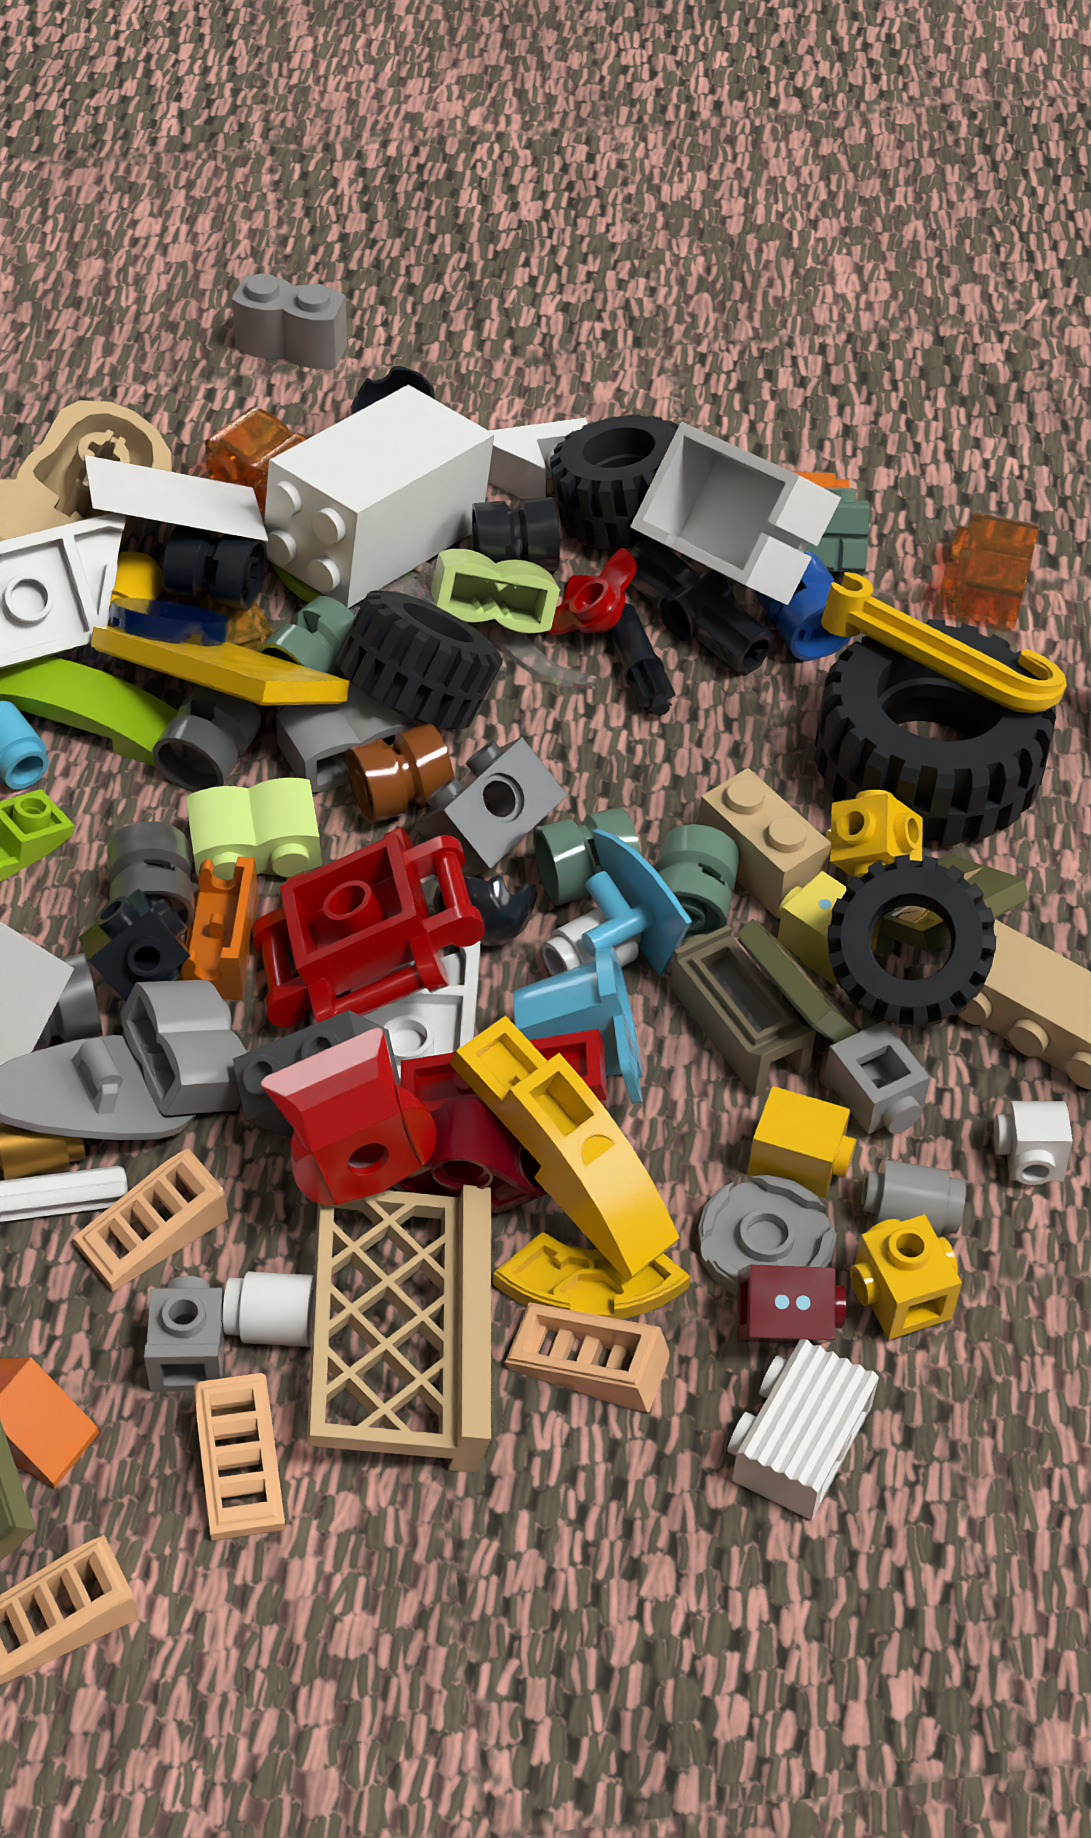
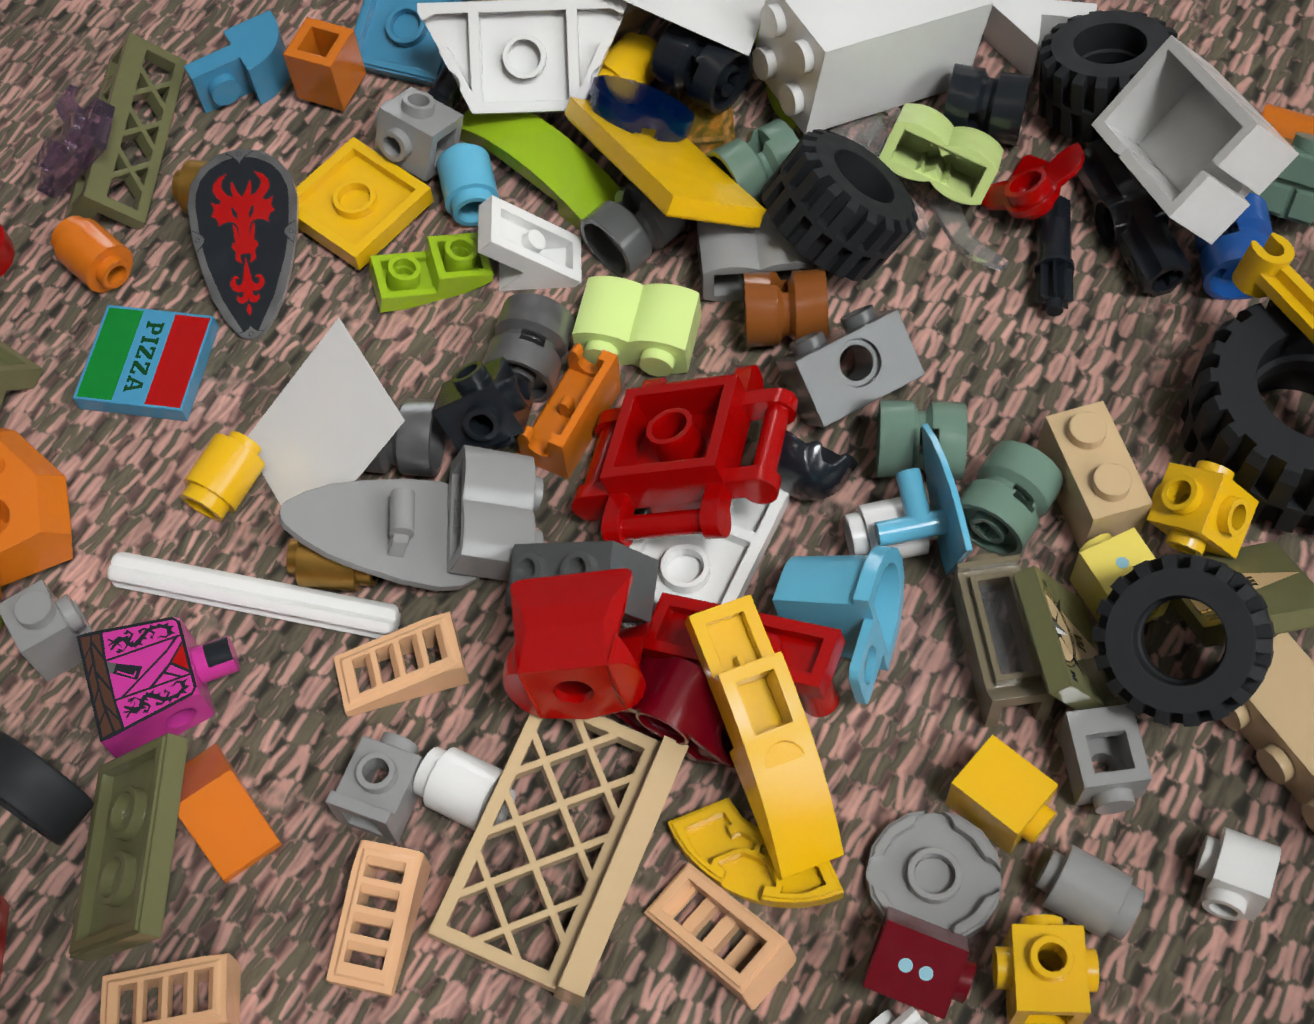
camera: 30 degrees right, 10 degrees up
(103, 790) = (527, 248): none -> white slope

